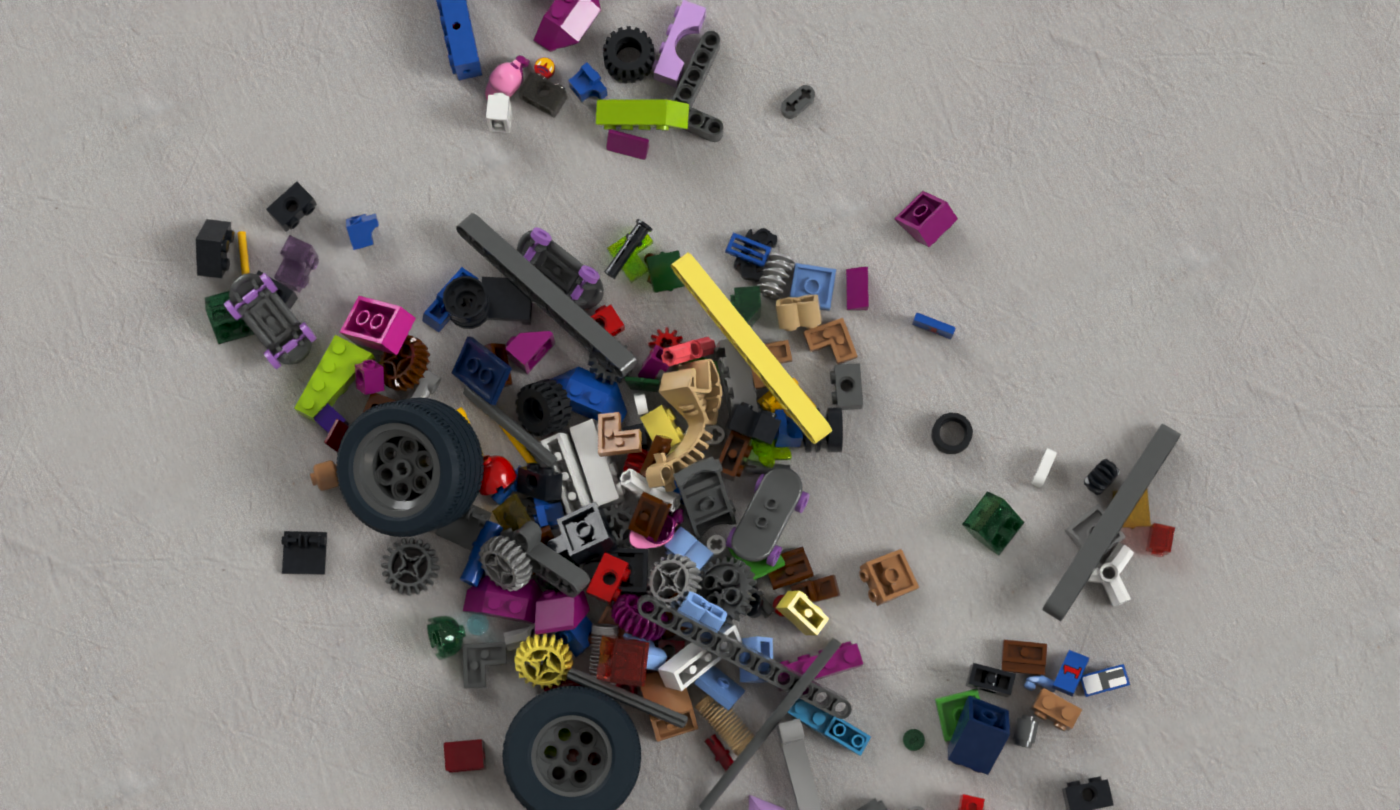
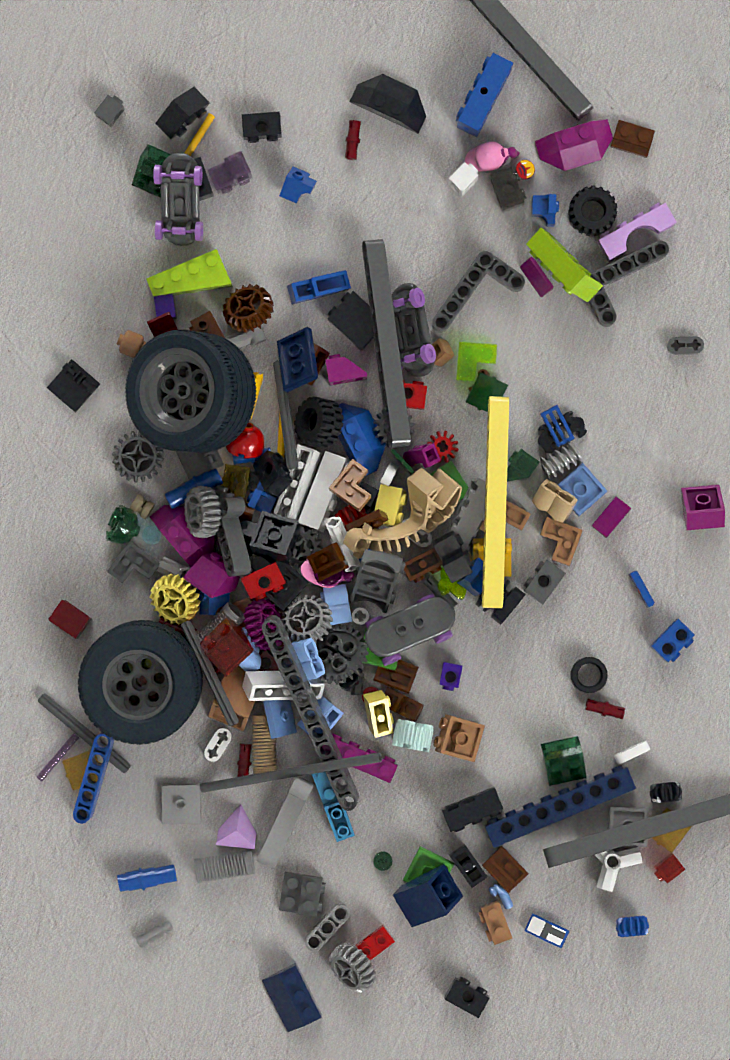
camera: 40 degrees right, 10 degrees up
(149, 296) = (110, 110): none -> dark grey brick
(369, 377) = (215, 299): magenta brick -> none
(377, 325) = (251, 266): dark pink brick -> none
(379, 157) = (352, 140): none -> dark red pin
(385, 102) = (391, 101): none -> black wedge
(449, 606) = (142, 506): none -> dark tan wheel
(465, 291) = (322, 293): black wheel -> none
(578, 195) = (471, 286): none -> dark grey beam
(600, 266) = (443, 352): none -> medium nougat slope
(632, 241) = (480, 352): black pin -> none
(688, 351) = (452, 466): coral piece -> none
(691, 757) = (213, 742): none -> white beam
(836, 521) = (457, 669): none -> dark purple brick
(848, 607) = (412, 735): none -> light aqua brick
(952, 629) = (472, 809): none -> black wedge
(989, 450) = (605, 708): none -> dark red pin
(992, 346) = (669, 636): none -> blue brick
(1025, 731) = (462, 919): dark grey brick -> none
(1061, 499) = (624, 785): none -> dark blue brick
(1070, 673) = (527, 906): blue tile -> none
(1173, 613) = (632, 926): none -> blue gear

